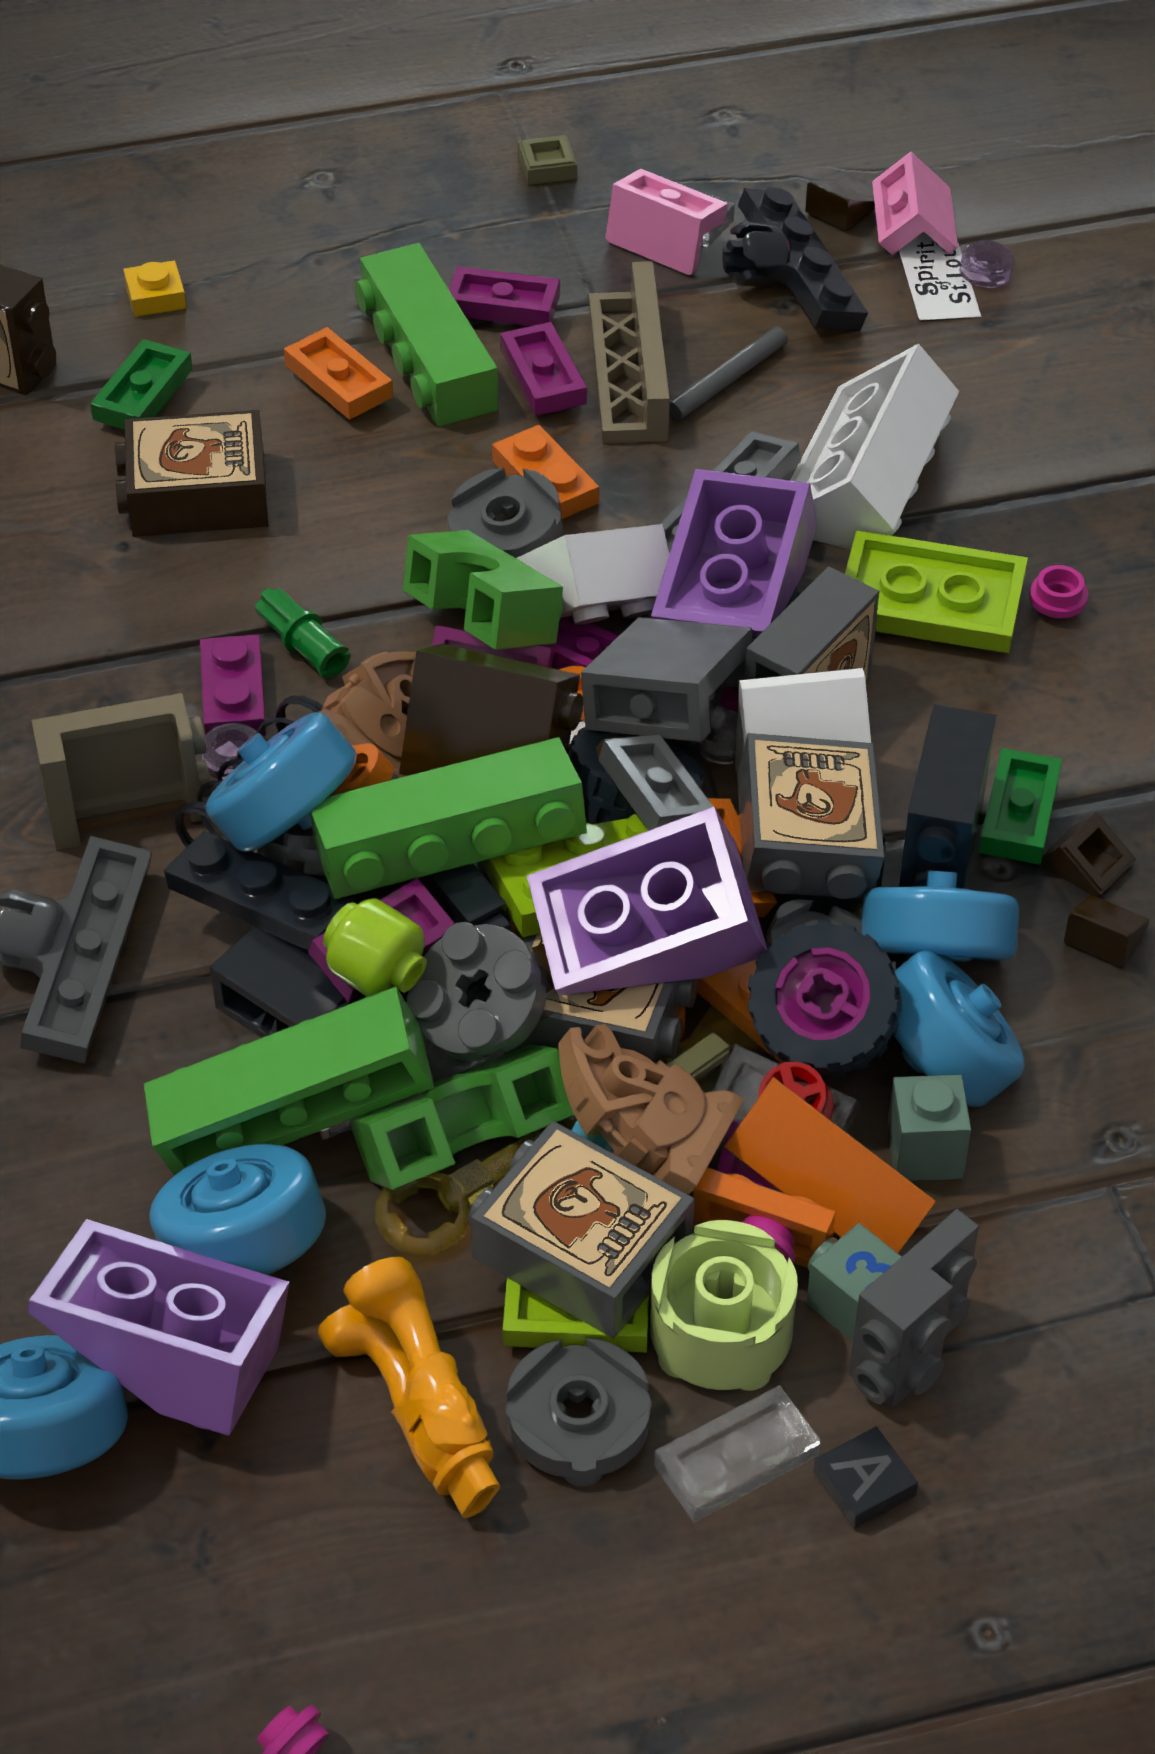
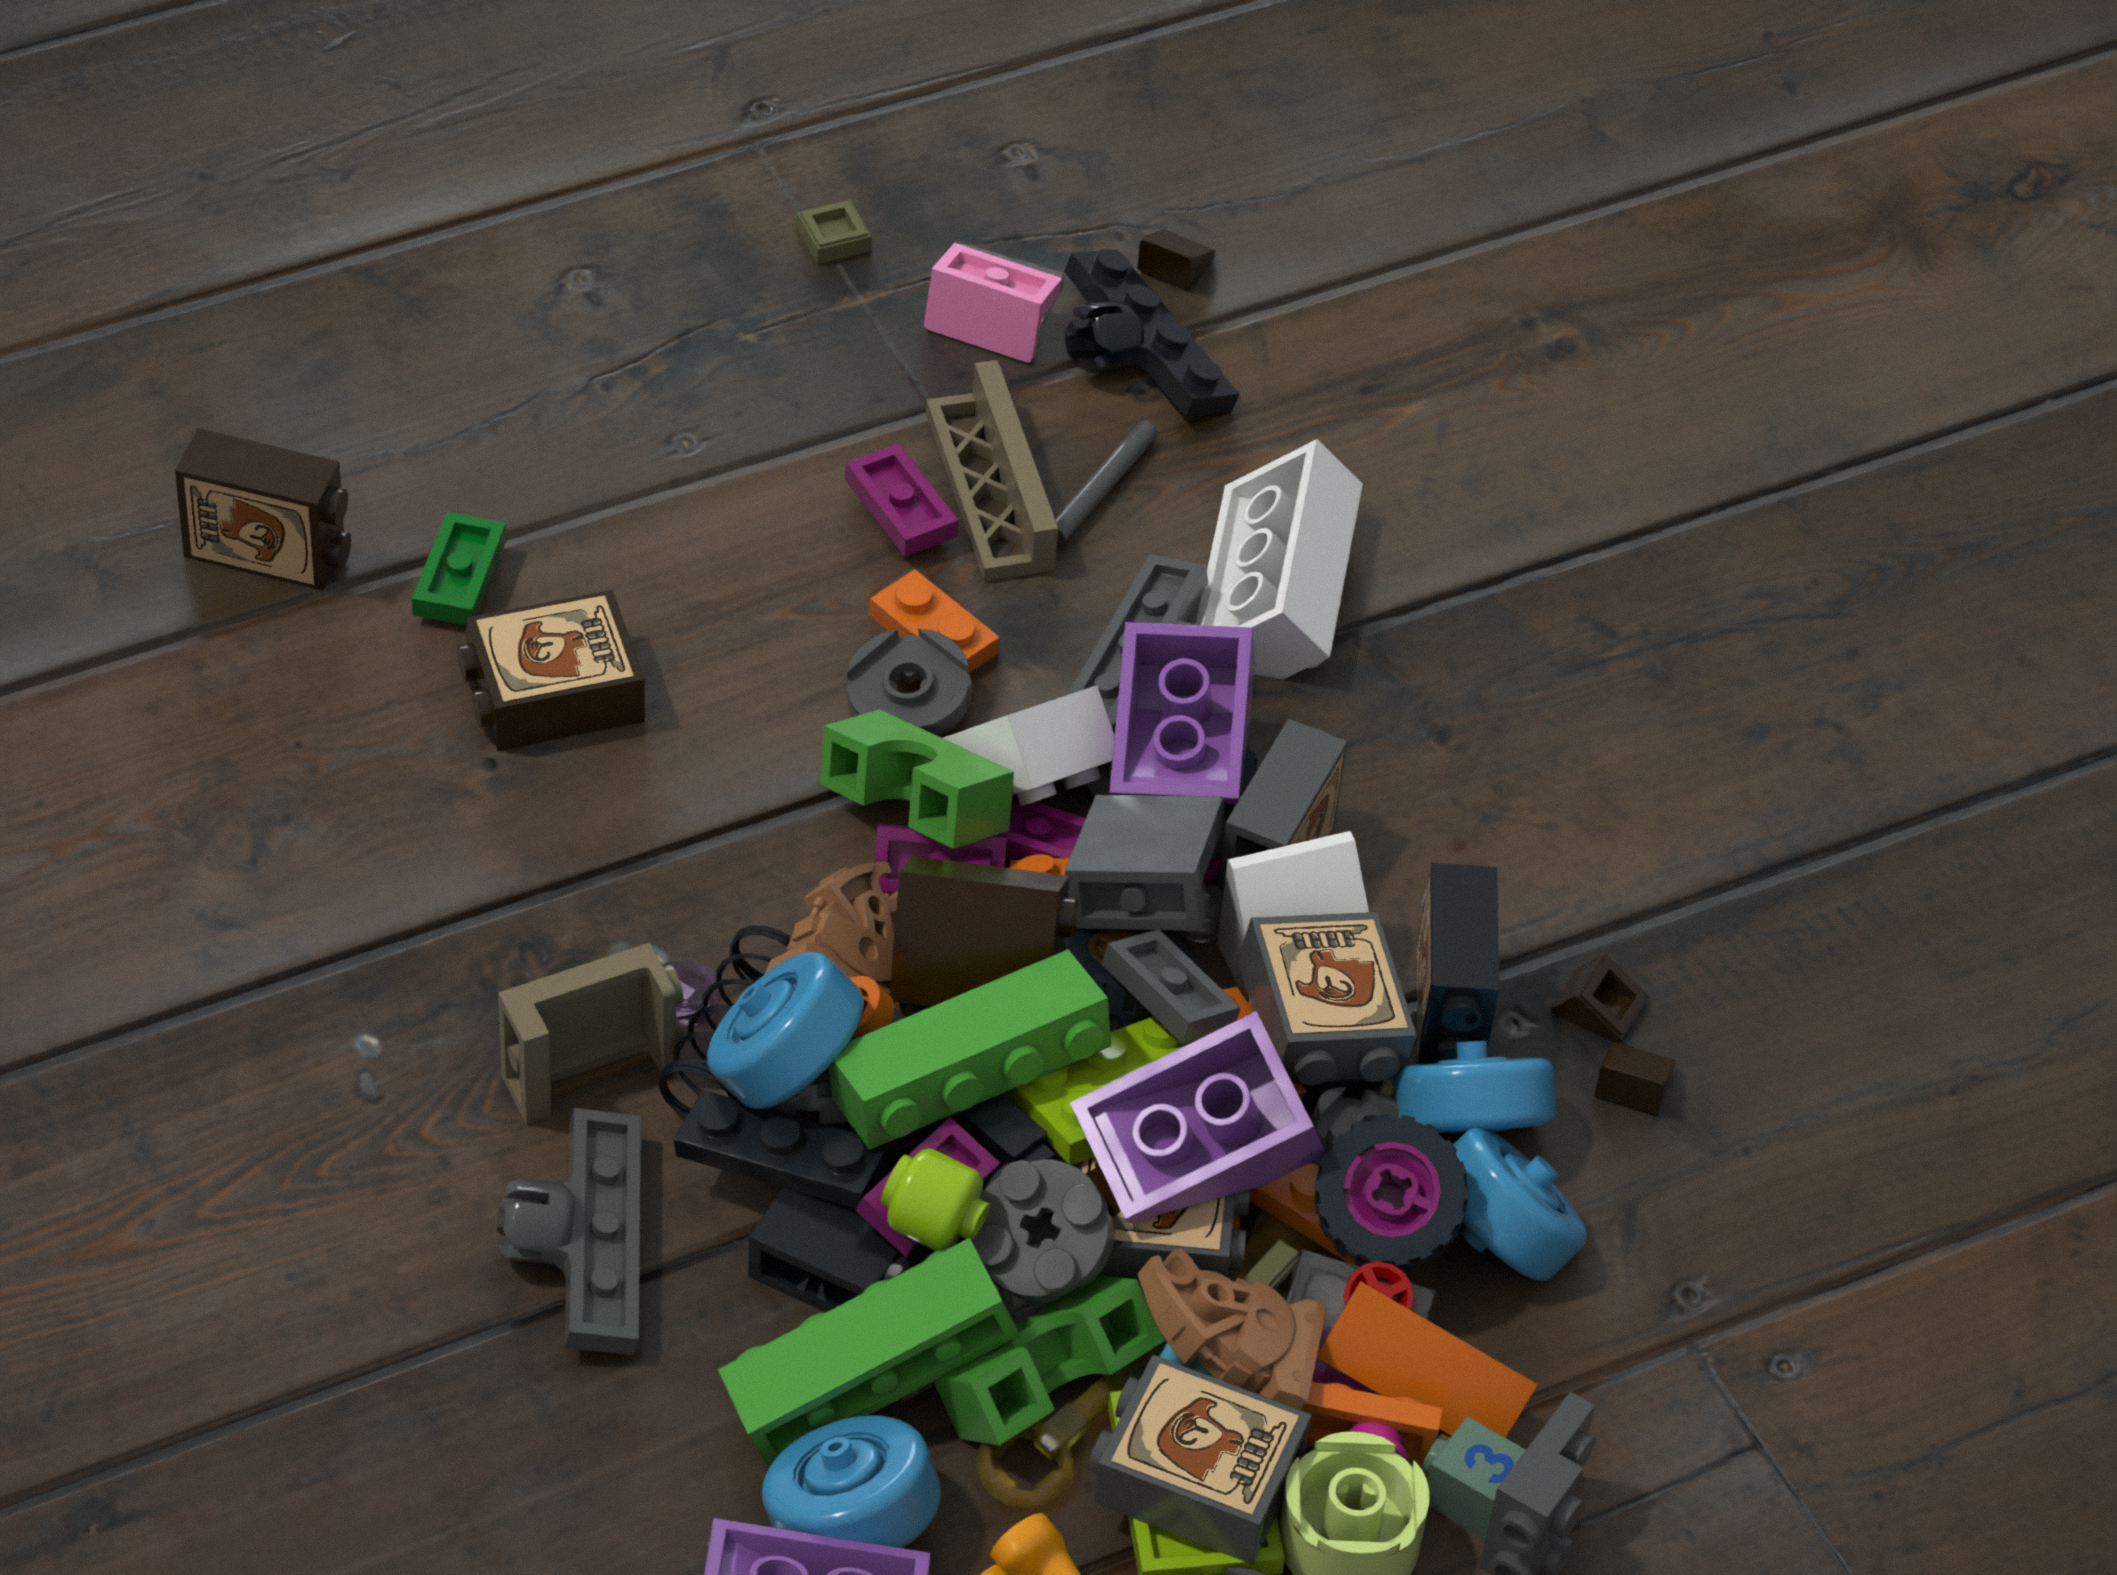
camera: 15 degrees left, 0 degrees up
(154, 288) = (432, 442): yellow plate -> none
(232, 681) = (664, 910): magenta plate -> none
(303, 632) = (723, 845): green axle -> none
(338, 373) = (675, 529): orange plate -> none
(427, 335) = (764, 471): bright green brick -> none
(505, 296) = (833, 415): magenta plate -> none
(911, 202) = (1257, 254): bright pink panel -> none
(929, 1127) = (1509, 1308): sand green brick -> none
(937, 281) = (1296, 329): white sticker -> none
(940, 589) = (1391, 717): lime plate -> none
(986, 264) = (1352, 318): clear purple tile -> none
(1020, 806) = (1528, 954): green plate -> none
(1059, 592) = (1513, 707): dark pink plate -> none

